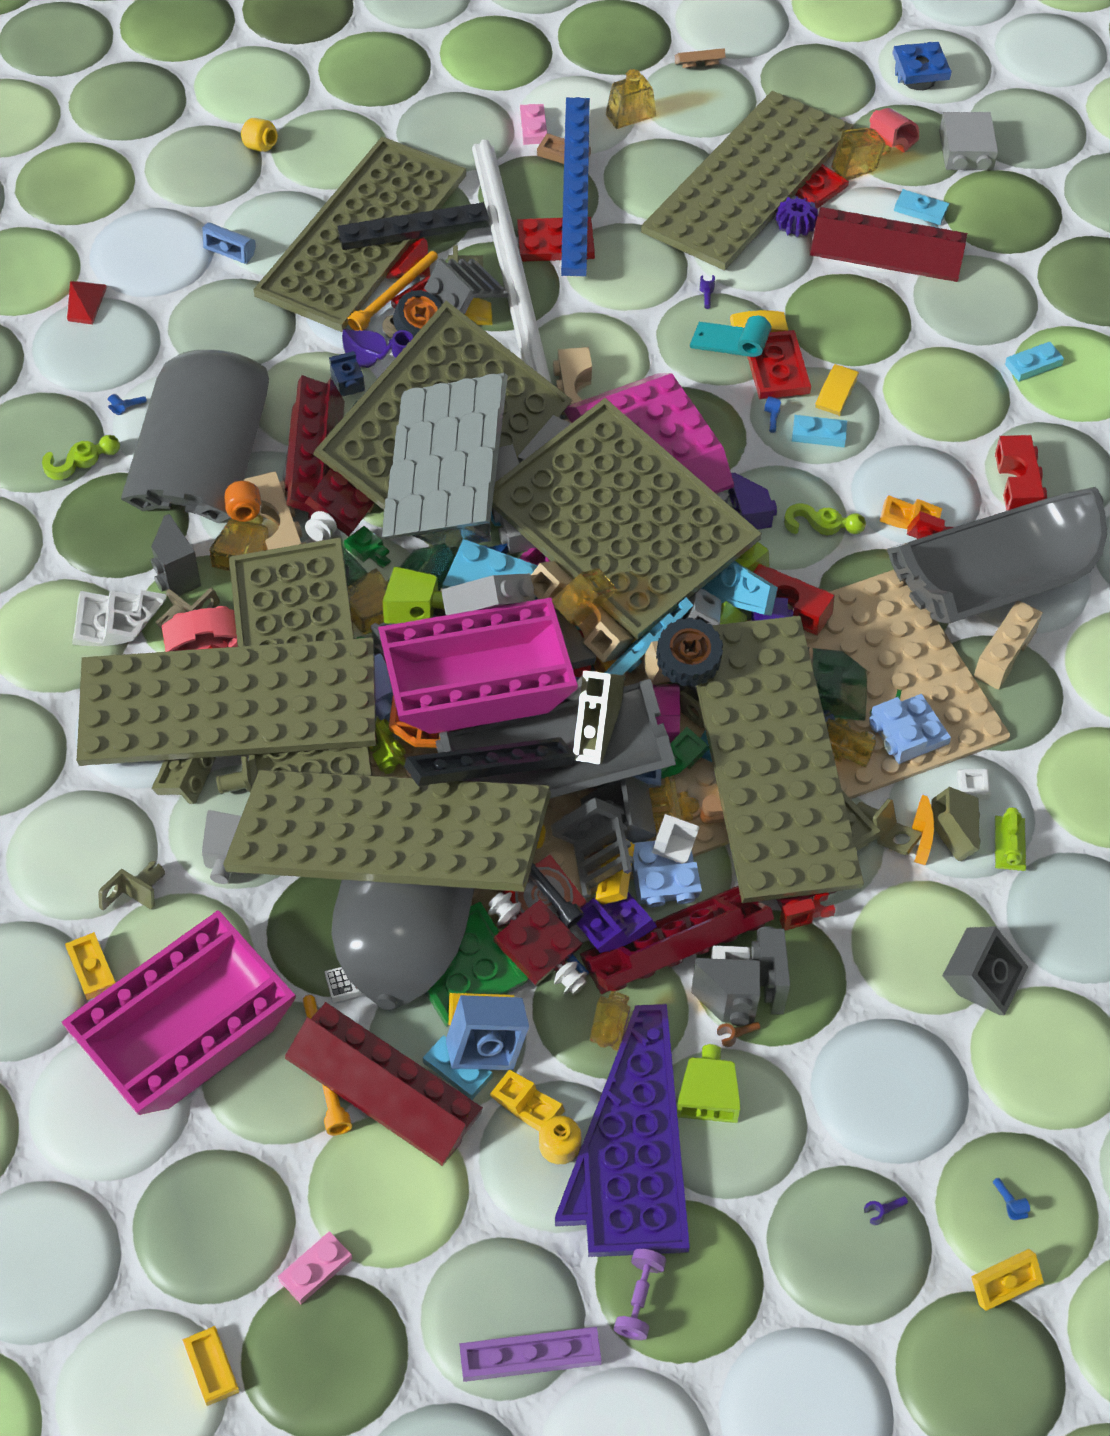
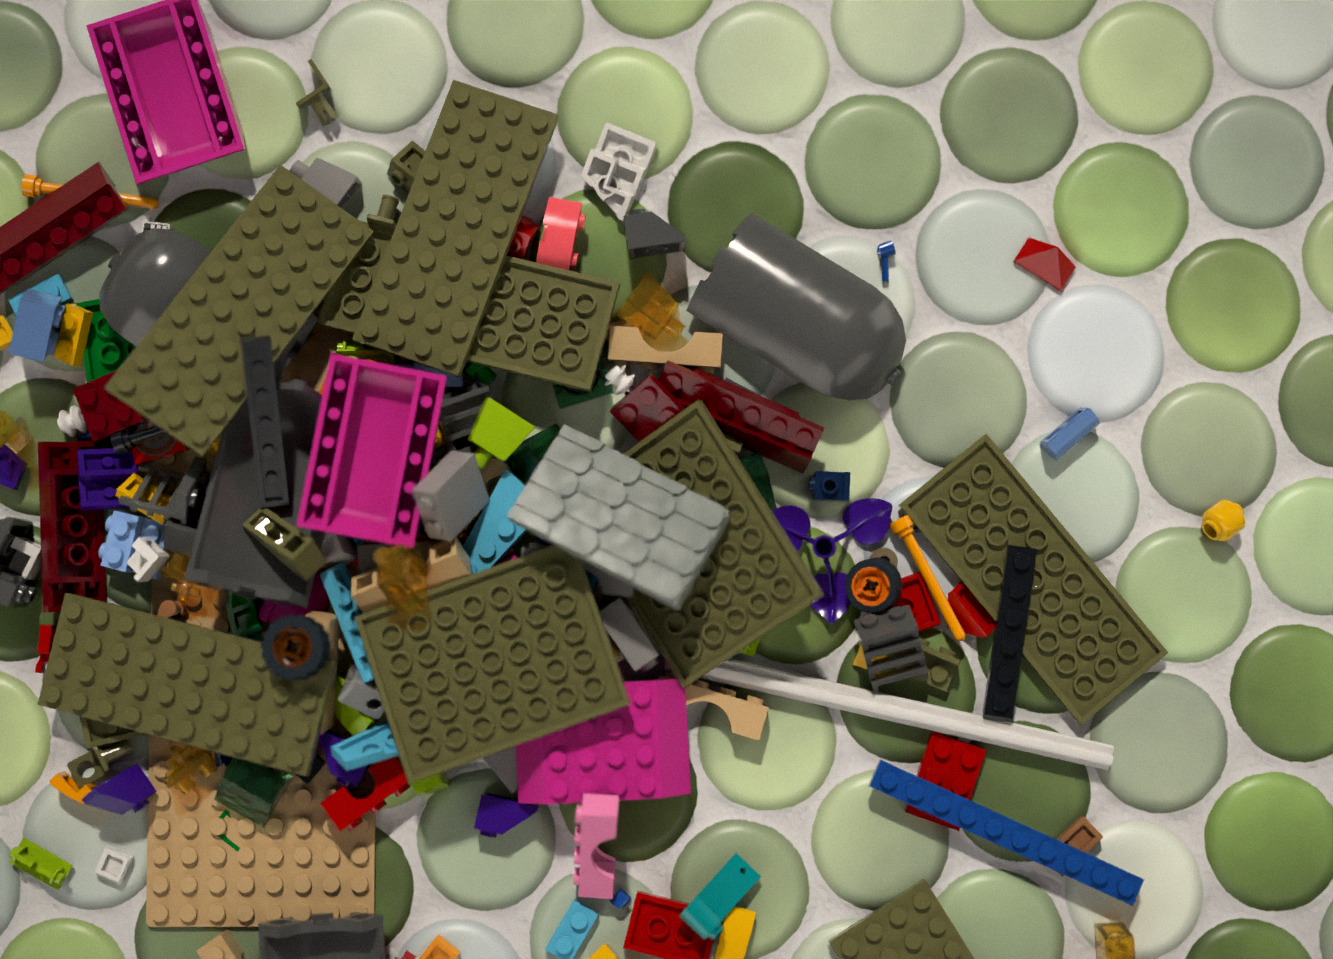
camera: 115 degrees right, 30 degrees up
(82, 454) = (830, 195): lime piece -> none
(90, 965) = (257, 37): yellow plate -> none
(181, 606) = (598, 228): dark tan bracket -> none
(242, 501) = (686, 319): orange head -> none
(367, 545) = (607, 427): green plate -> none
(367, 600) = (534, 401): clear yellow torso -> none
(533, 123) = (1133, 832): bright pink plate -> none
(707, 288) = (808, 908): dark purple hand -> none
(718, 406) = (598, 823): none -> bright pink arch
(825, 521) = (454, 877): lime piece -> none
(902, 786) = (122, 792): none -> dark purple slope
(908, 727) = (184, 832): light blue plate -> none
(957, 821) = (72, 825): olive slope -> none

